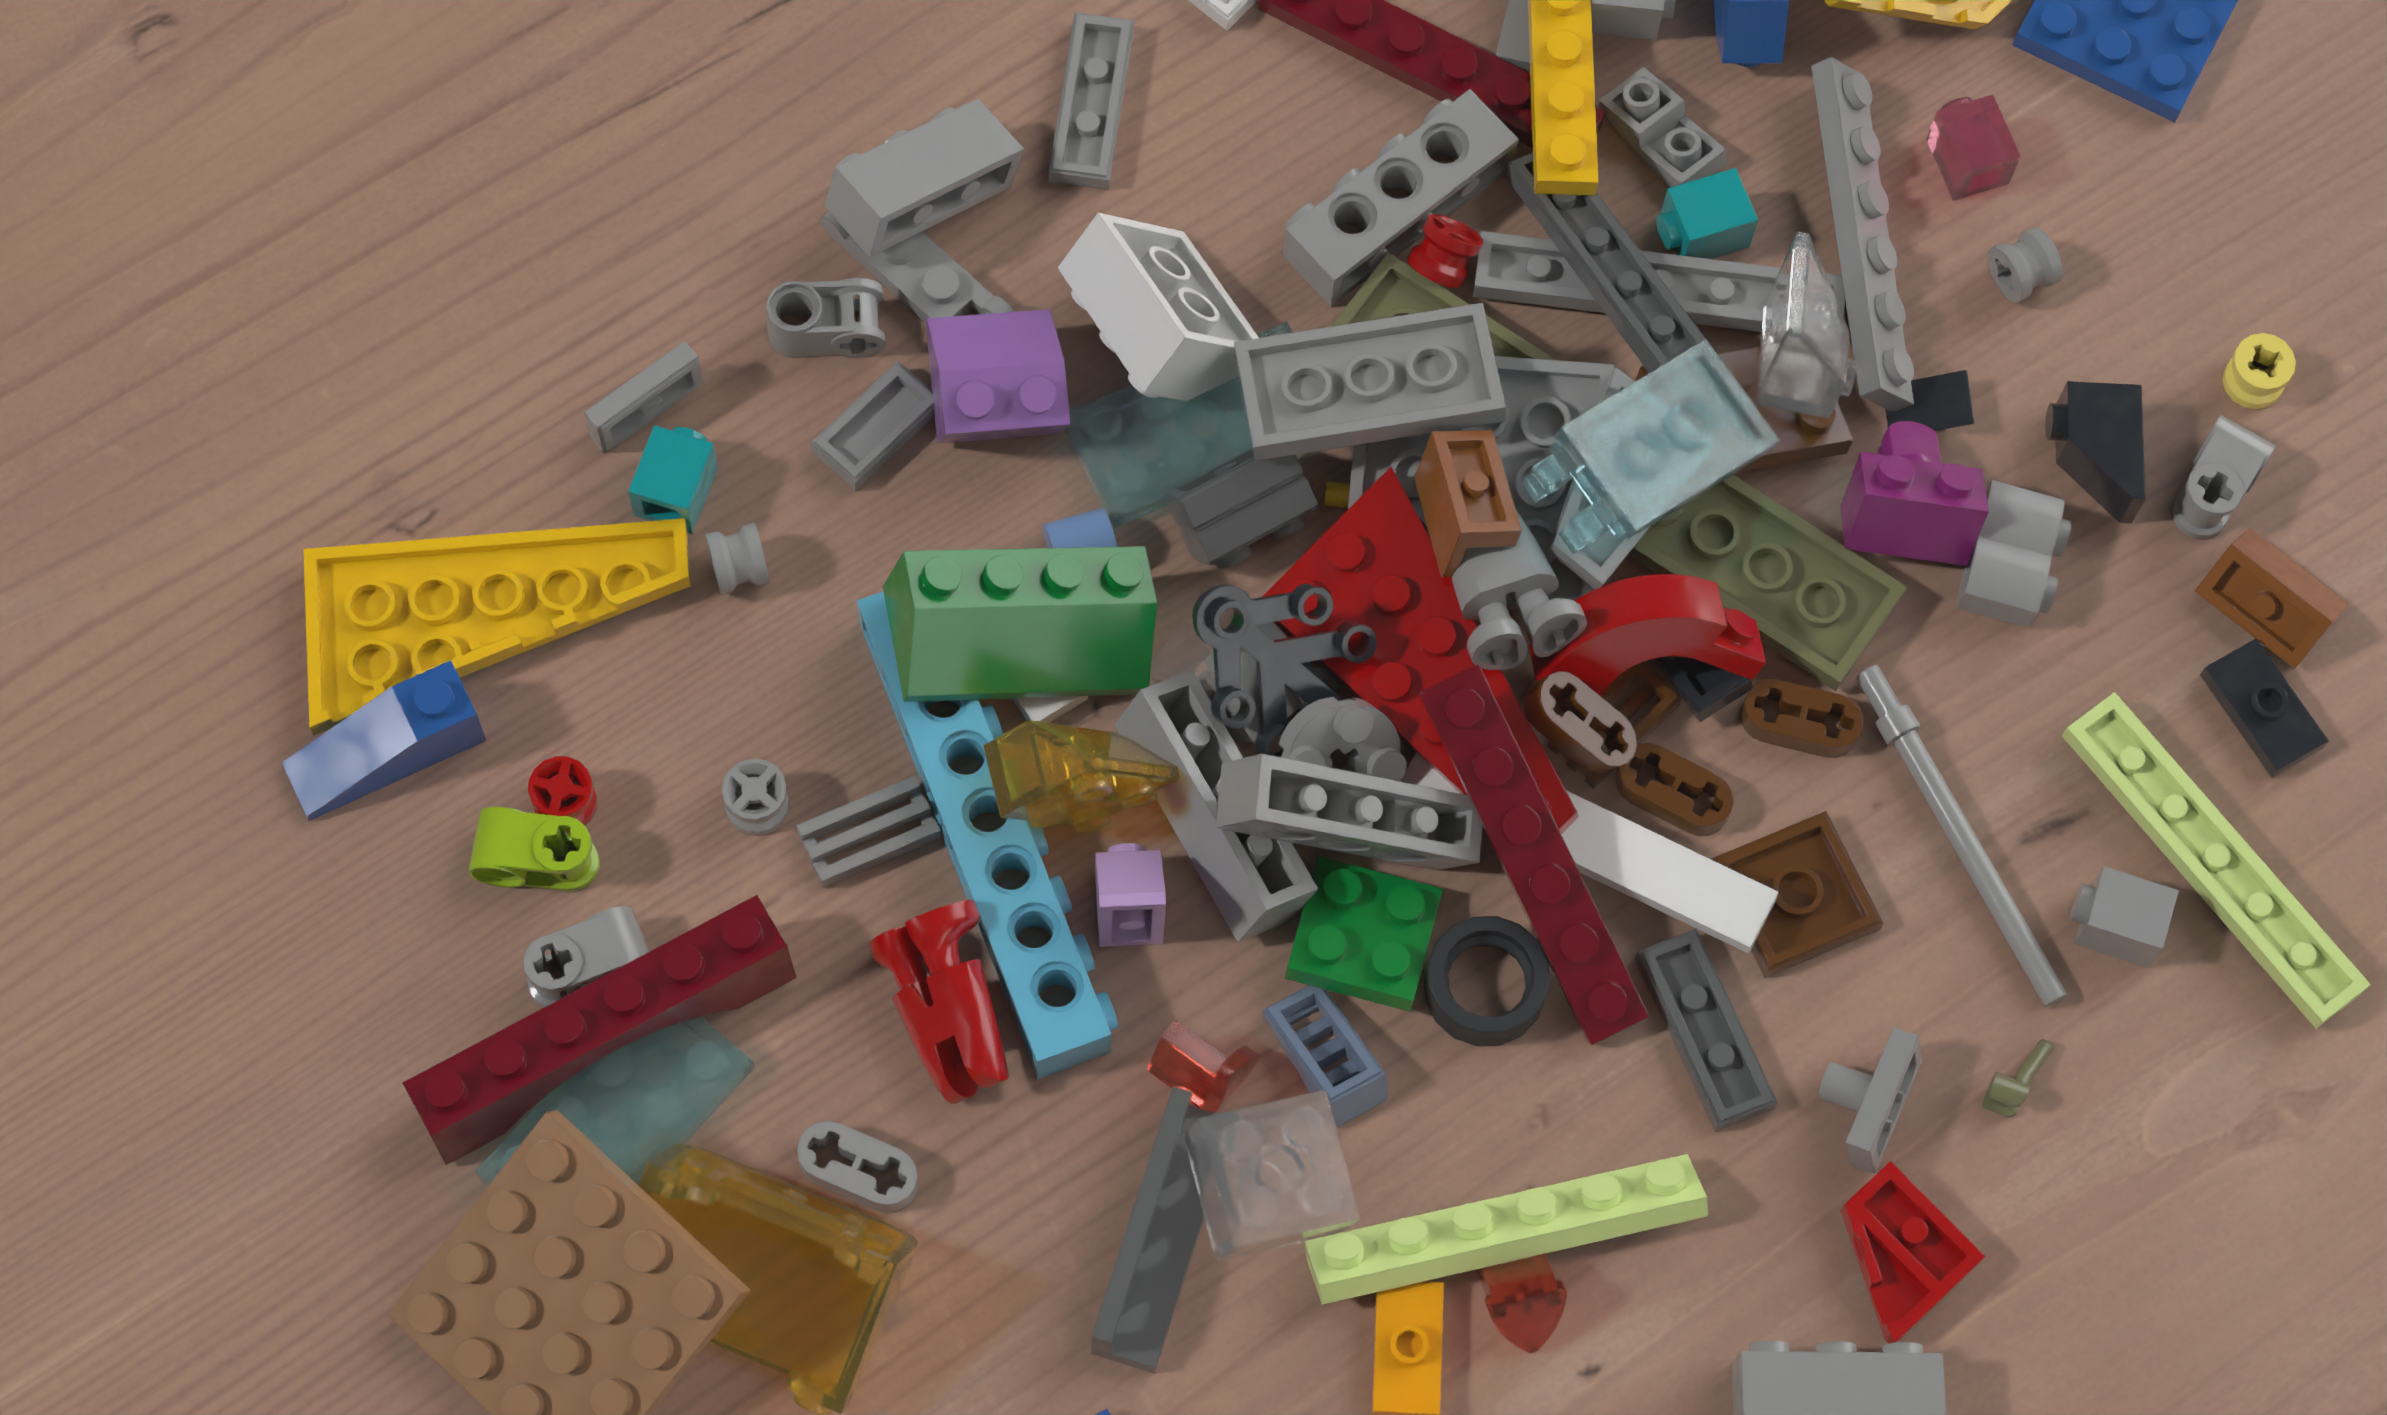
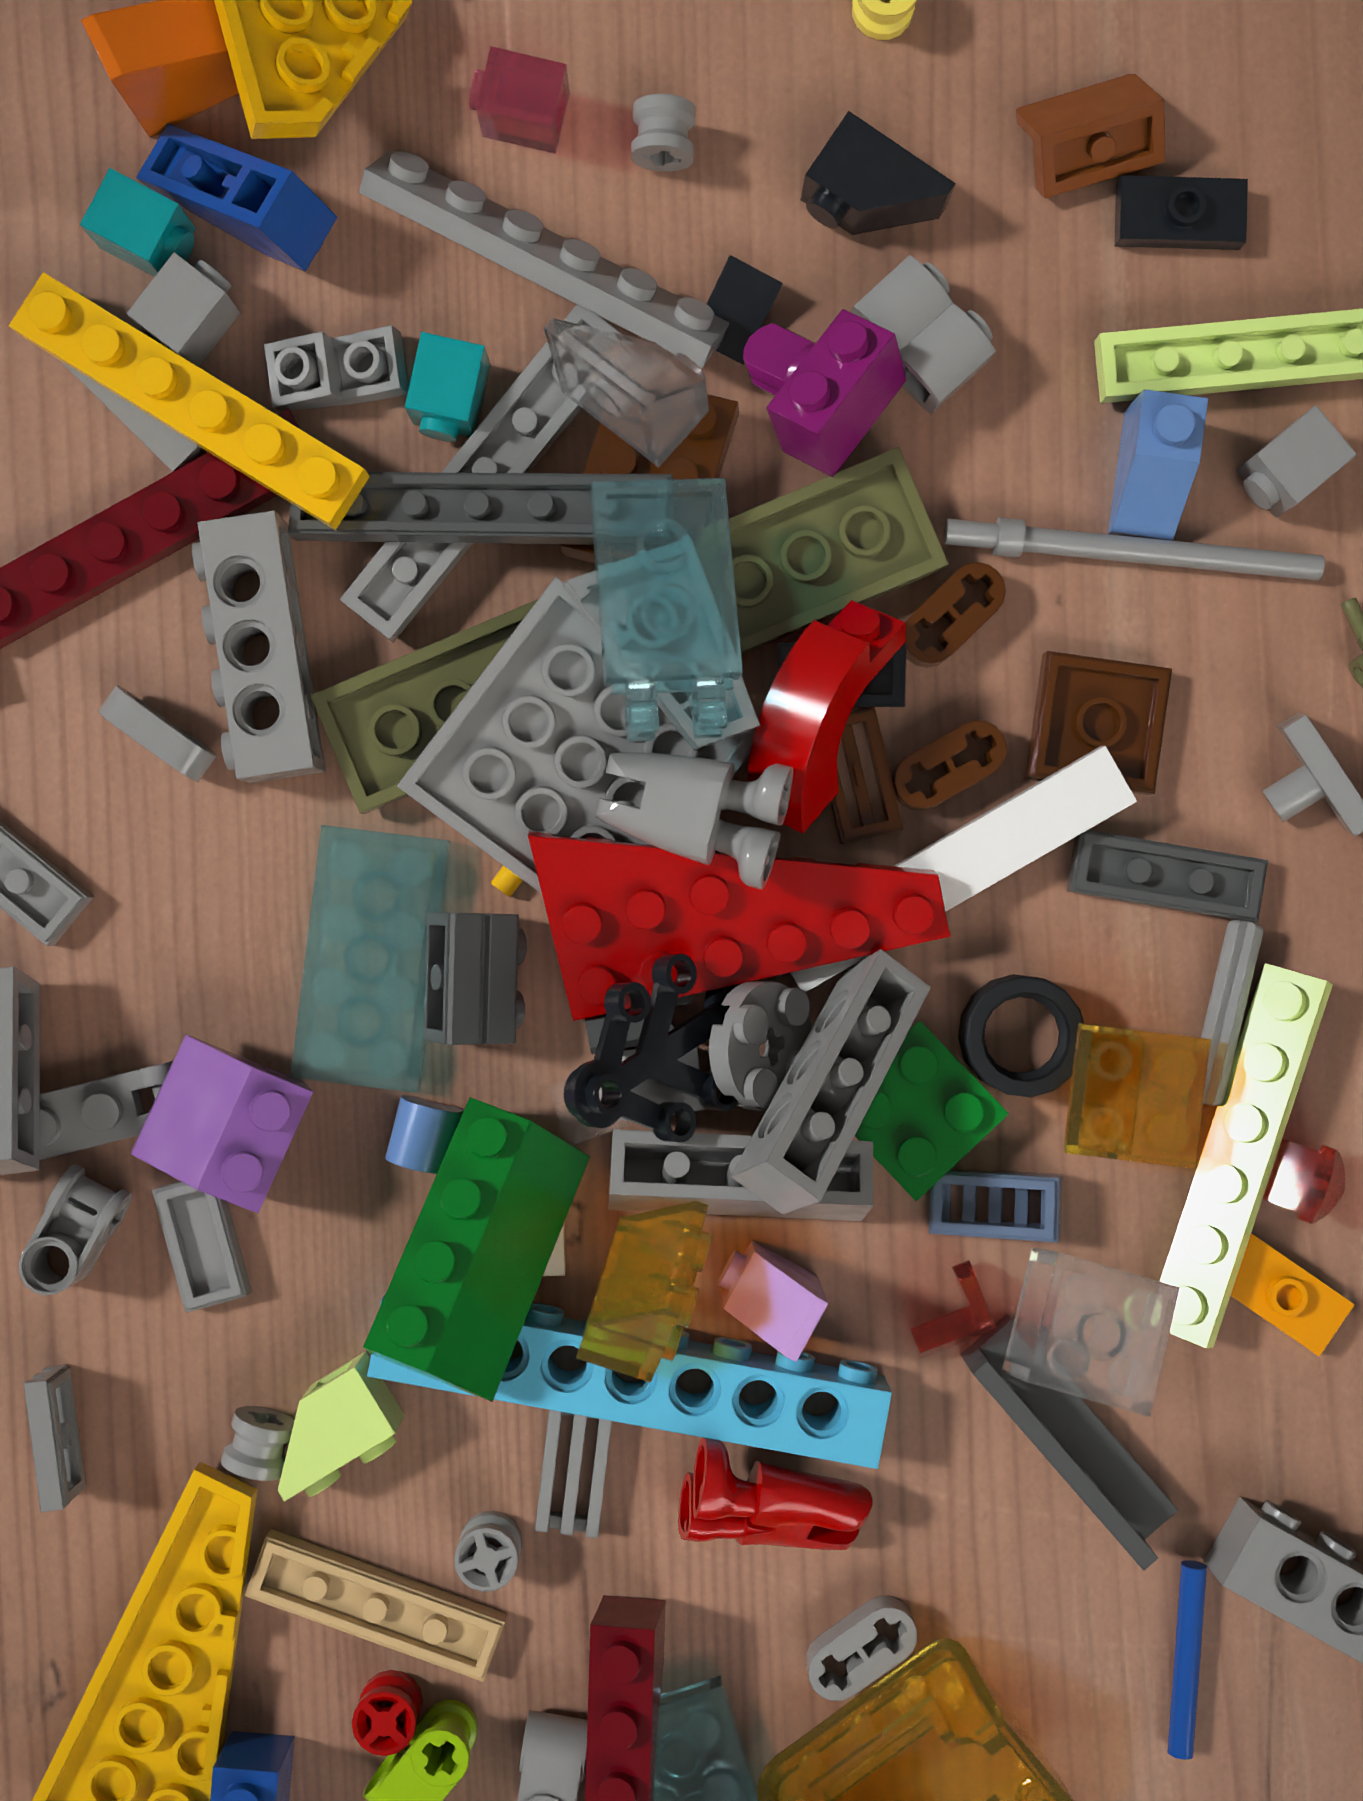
camera: 55 degrees left, 20 degrees up
(647, 739) = (376, 1605): none -> tan tile
(673, 476) = (147, 1454): teal brick -> none
(790, 608) = (336, 1423): none -> yellowish green slope
(1156, 306) = (245, 936): white slope -> none
(1278, 158) = (157, 733): none -> light grey beam
(1369, 381) = (441, 810): light grey plate -> none
(1445, 250) = (339, 644): red wheel -> none
(1465, 496) = (607, 794): dark orange panel -> none
(1499, 1094) = (1136, 1095): none -> clear yellow slope
(1533, 854) = (949, 939): dark red plate -> none
(1578, 726) = (853, 807): reddish brown beam -> none
(1623, 1146) = (1228, 1003): none -> light grey axle
(2042, 802) = (1156, 463): none -> medium blue slope
(2222, 475) = (958, 92): light grey piece -> none

